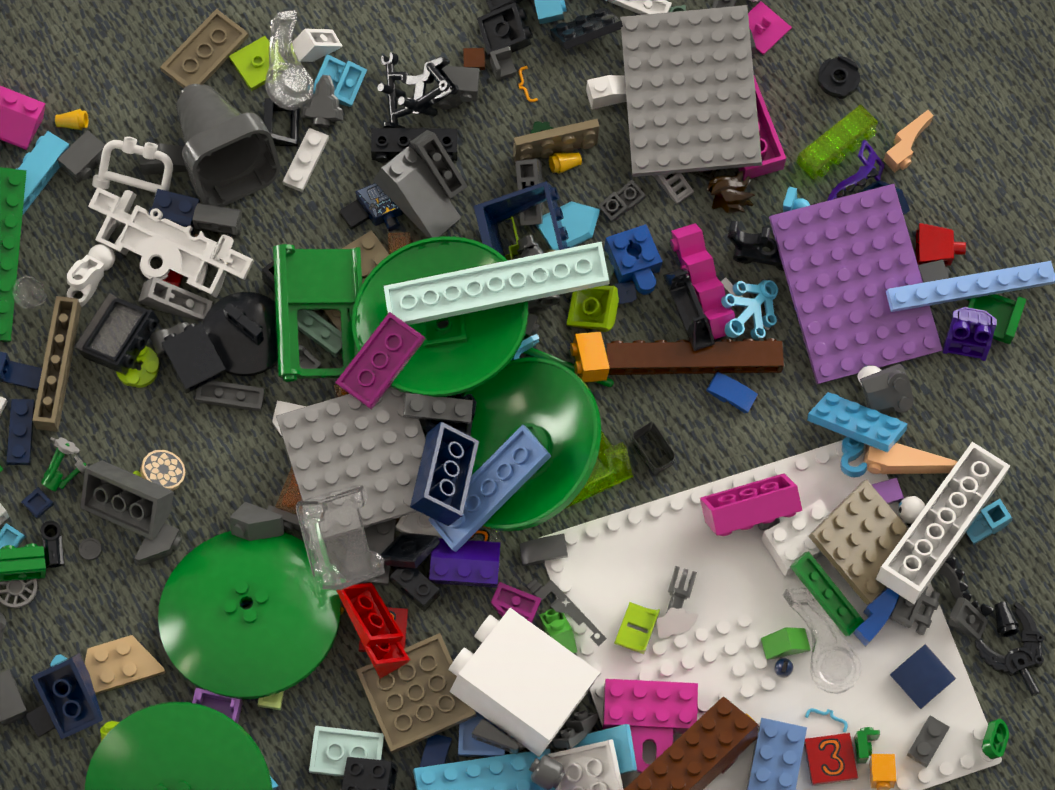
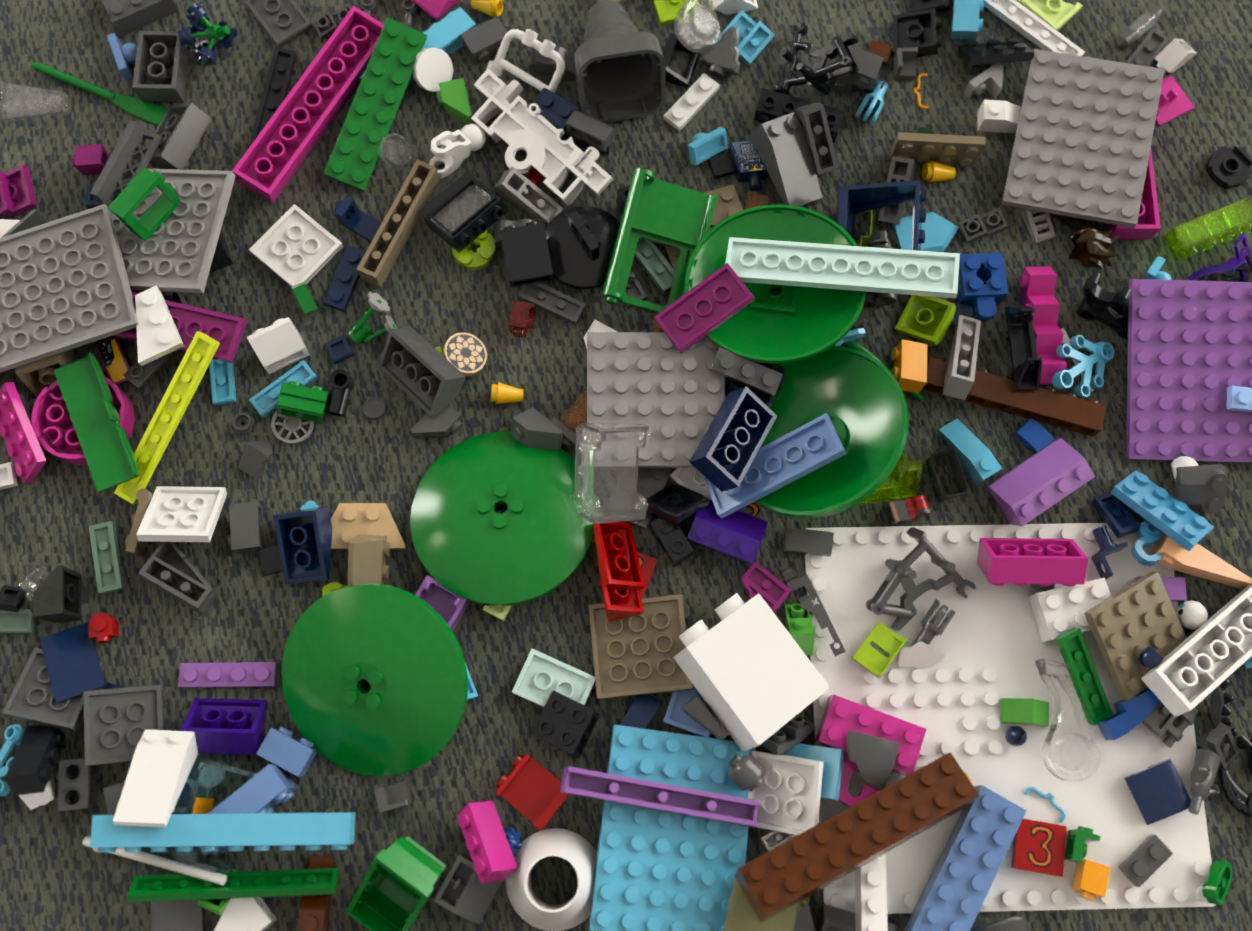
camera: 20 degrees right, 5 degrees up
(40, 201) = (432, 68): none -> white tile
(72, 225) = (455, 100): none -> bright green slope
(135, 689) = (368, 559): none -> dark tan slope
(206, 420) = (521, 318): none -> clear red brick
(214, 497) = (504, 393): none -> yellow cone
(334, 200) = (707, 145): none -> medium azure tile
(482, 110) = (873, 102): none -> medium azure arm
(587, 56) = (989, 79): none -> light grey slope
(627, 492) = (907, 510): none -> leg
(636, 335) = (962, 358): none -> light grey slope
(636, 550) = (904, 574): none -> dark grey piece
(655, 721) = (872, 757): none -> dark grey brick
(670, 421) = (971, 452): none -> medium azure slope
(741, 429) = (1040, 482): none -> medium lavender slope
(819, 439) = (1115, 515): none -> dark blue plate
(819, 472) = (1107, 547): none -> dark blue bracket
(877, 558) = (1149, 658): none -> dark blue hinge
(957, 651) = (1203, 777): none -> dark grey piece

